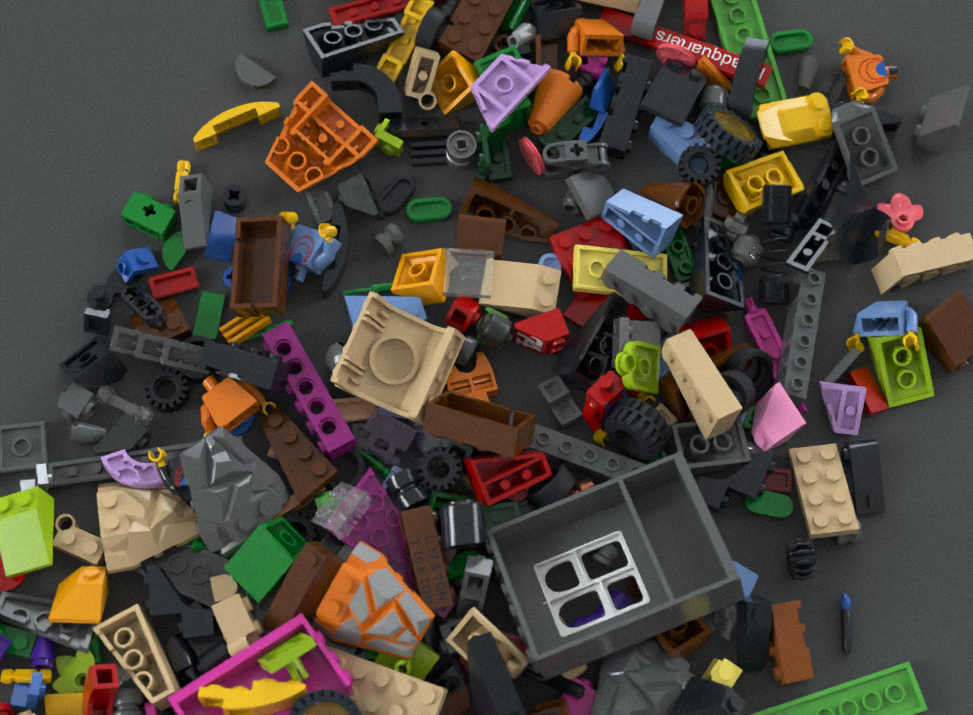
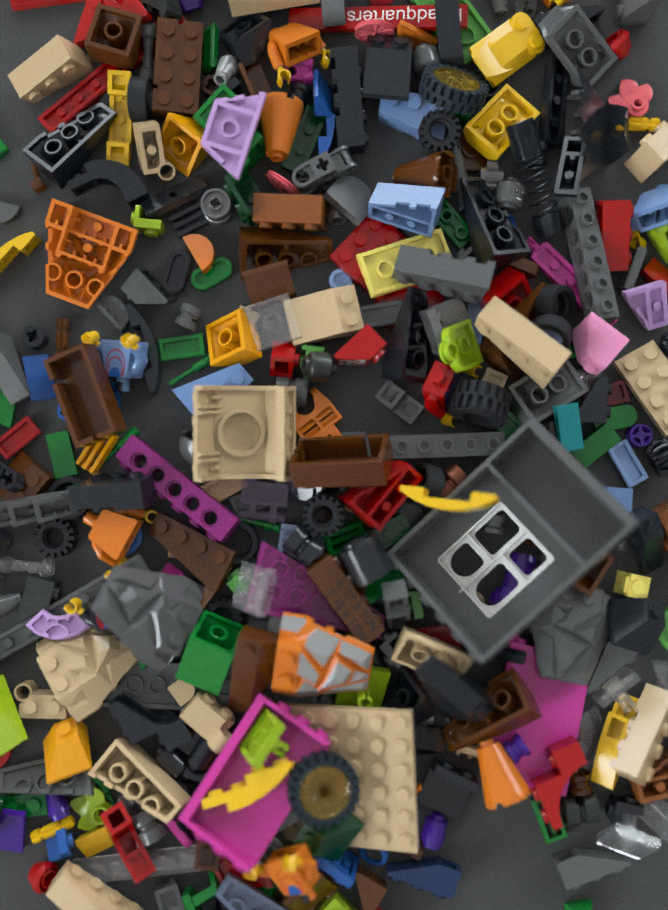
camera: 15 degrees left, 15 degrees up
(261, 206) = (62, 335): none -> reddish brown axle
(301, 65) = (37, 184): none -> reddish brown hand
(370, 265) = (182, 347): none -> green tile
(428, 183) = (201, 250): none -> orange tile
(492, 602) = (415, 603): none -> bright green bracket
(529, 181) = (290, 211): none -> dark orange wedge
(576, 310) = (381, 314): none -> dark grey tile
(595, 508) = (477, 502): none -> yellow slope
(716, 484) = (568, 426): none -> teal tile
(738, 326) = (526, 267): none -> reddish brown beam
(739, 520) = (596, 444): none -> green tile
(764, 553) = (627, 463): none -> light blue tile
(789, 525) = (643, 433): none -> dark purple wheel
(834, 325) = (615, 231): none -> red wedge
(905, 159) = (620, 43): none -> red cone

